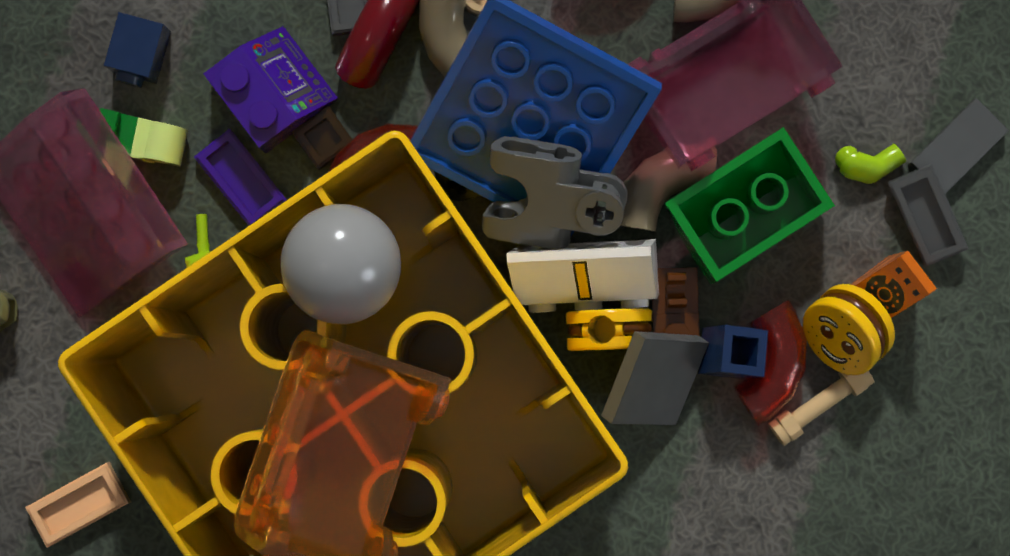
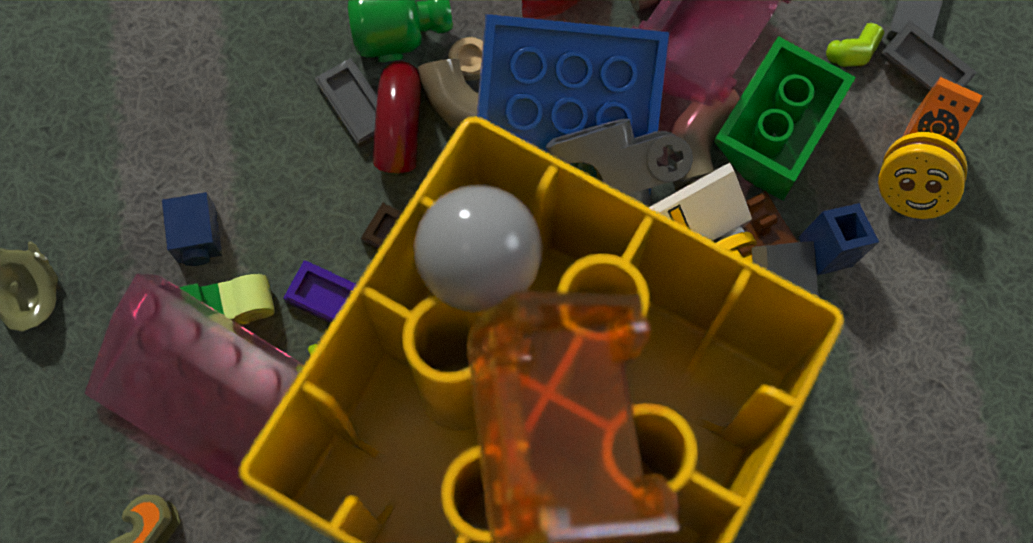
camera: 25 degrees left, 15 degrees down
(270, 87) = (323, 211): dark purple slope -> none
(783, 365) = (885, 263): clear red cylinder -> none
(789, 425) = (917, 283): tan bar -> none

